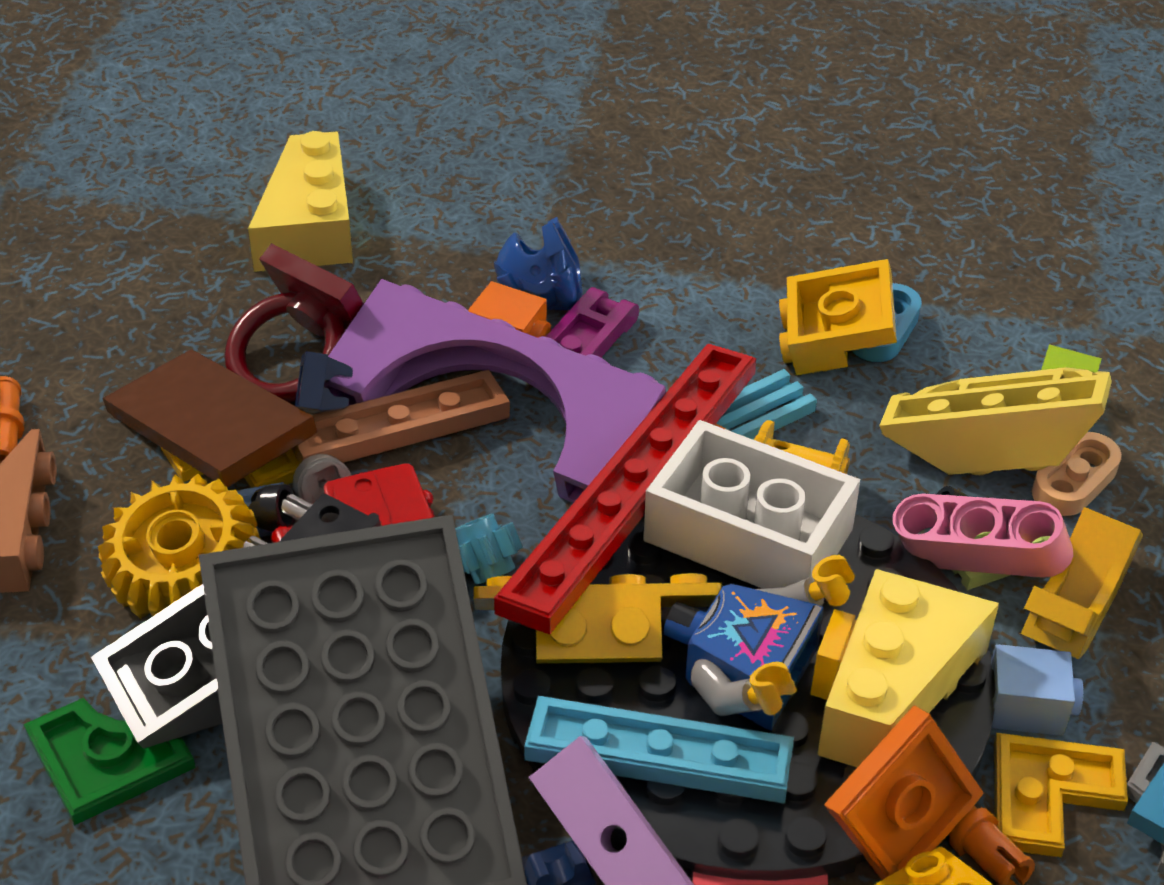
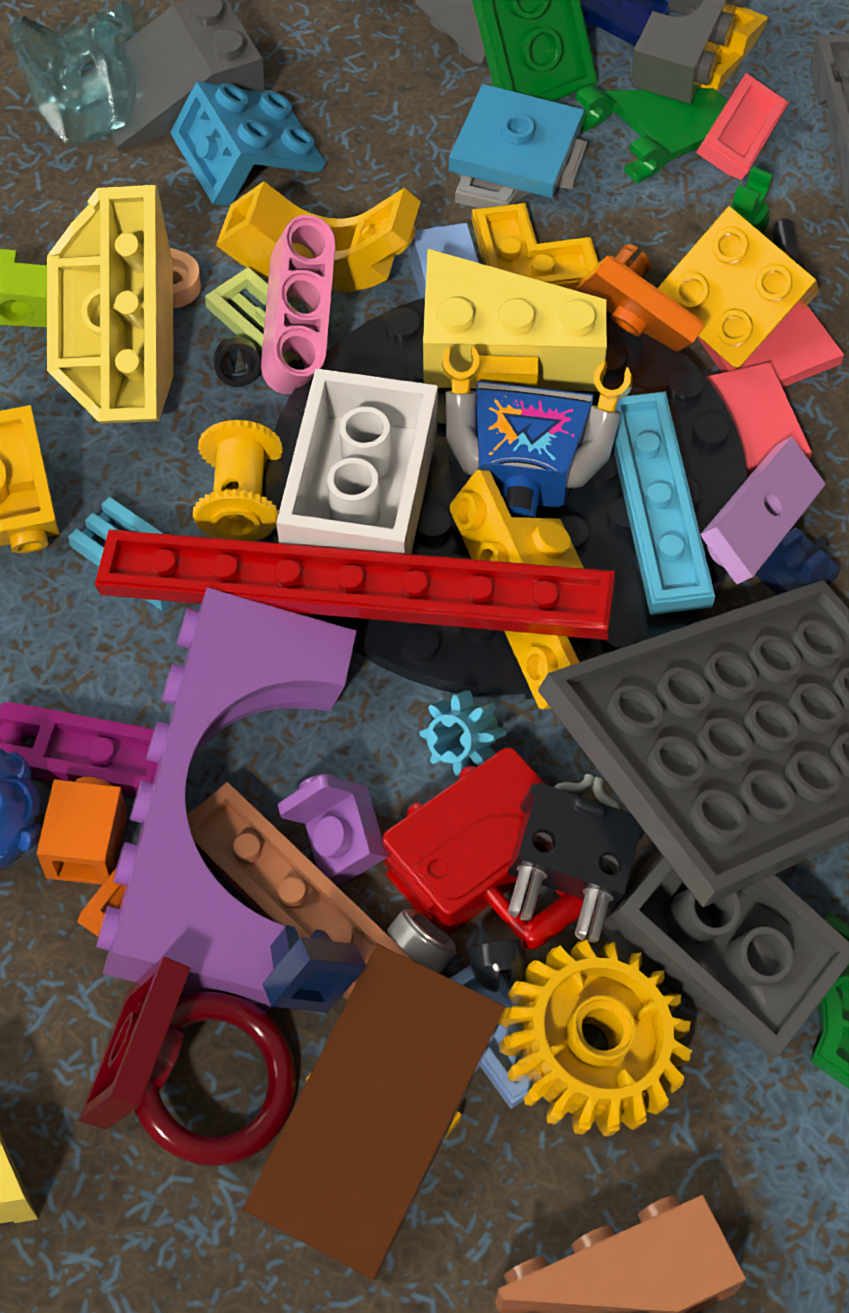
camera: 110 degrees left, 15 degrees up
(432, 457) = (338, 825): none -> medium lavender bracket

